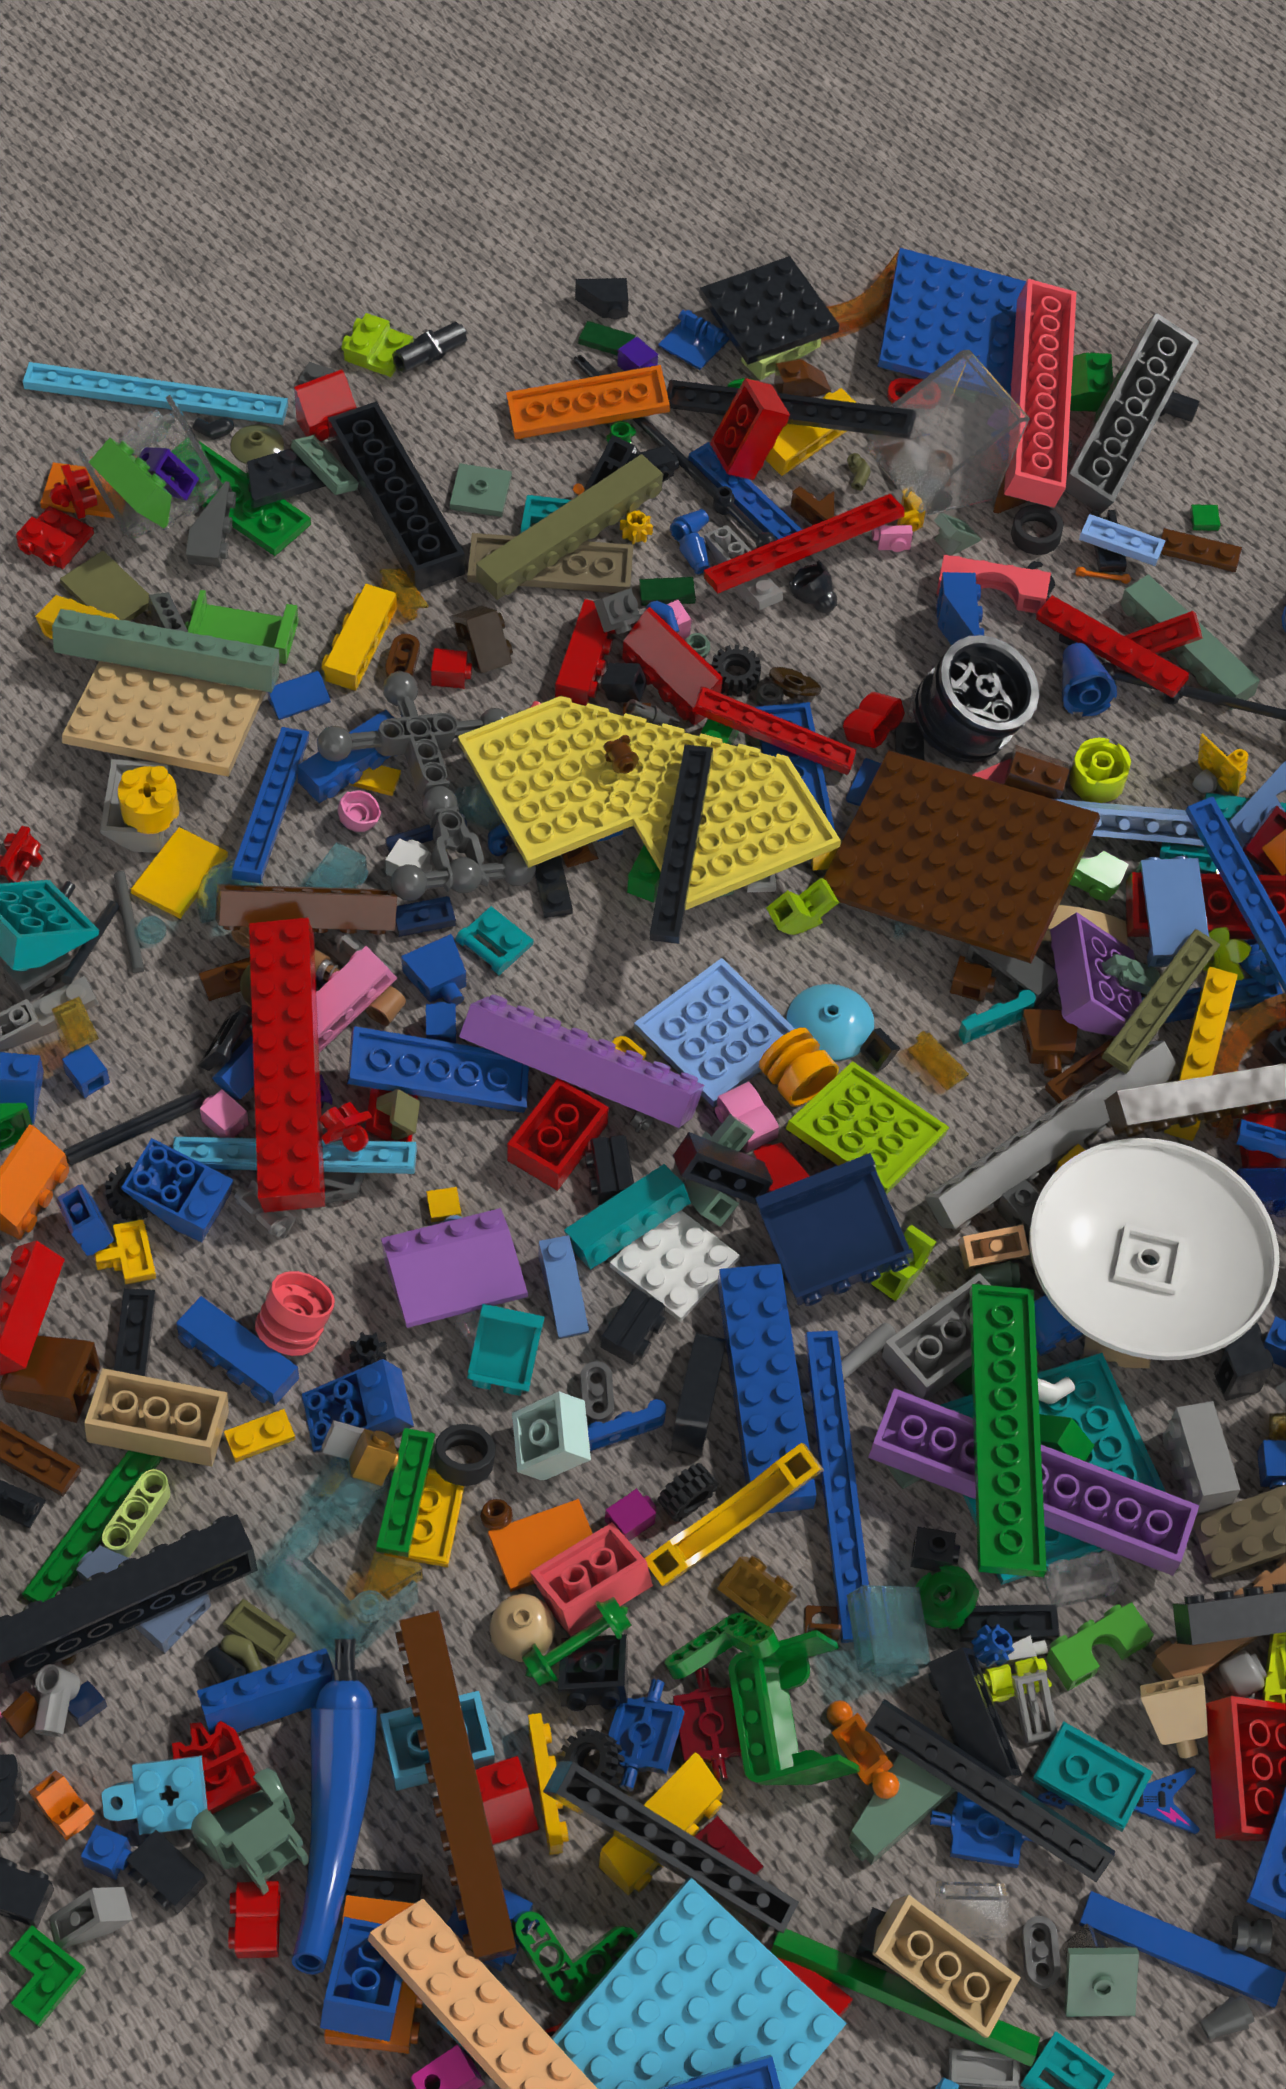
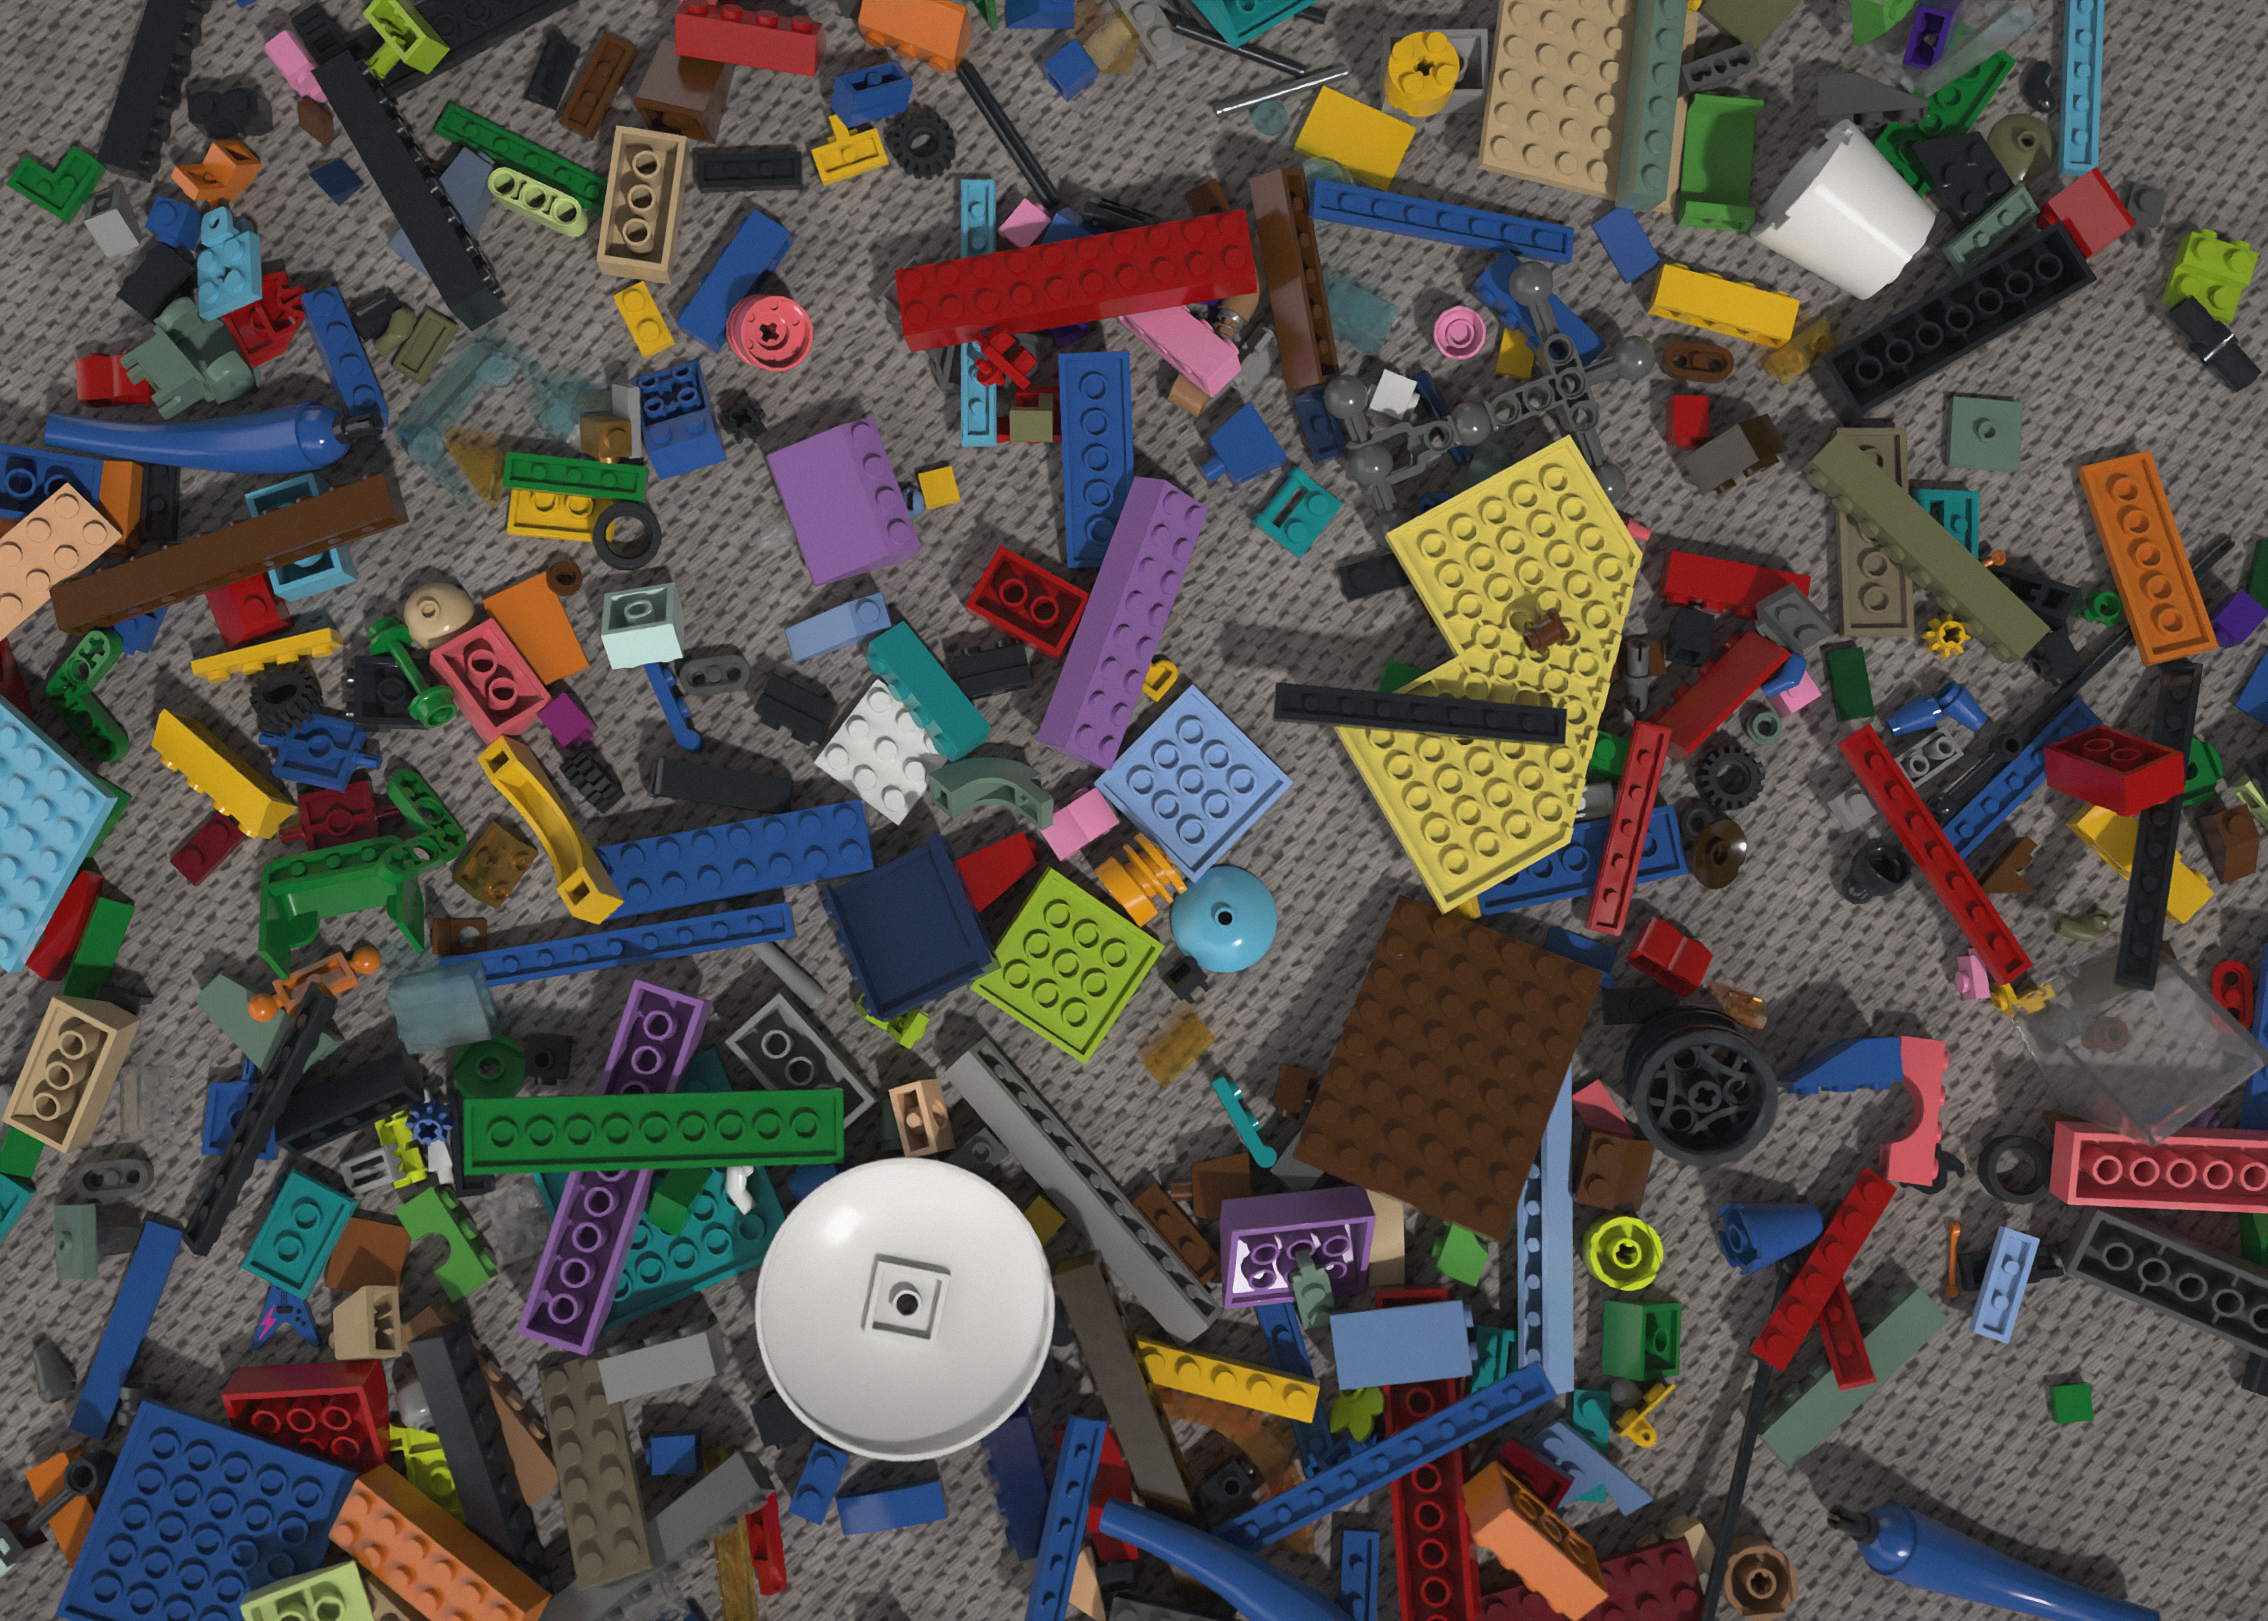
camera: 90 degrees right, 25 degrees up
(56, 1690) = (325, 148): light grey piece -> none
(178, 1189) = (919, 188): blue slope -> none
(303, 543) = (1846, 215): none -> white cone
(441, 1021) = (1170, 458): blue brick -> none
(505, 1349) = (749, 567): teal panel -> none
(670, 1846) = (161, 776): black brick -> none
(722, 1168) = (977, 792): black brick -> none
(802, 912) = (1370, 875): lime brick -> none
(914, 676) = (1746, 1010): none -> clear orange tile
(954, 534) = (1992, 1059): sand green slope -> none
(1114, 1718) = (369, 1255): none -> dark orange tile
(1160, 1001) = (1261, 1324): olive tile -> none
(1165, 769) = (1641, 1338): none -> green slope
(1200, 550) = (2013, 1394): reddish brown plate -> none

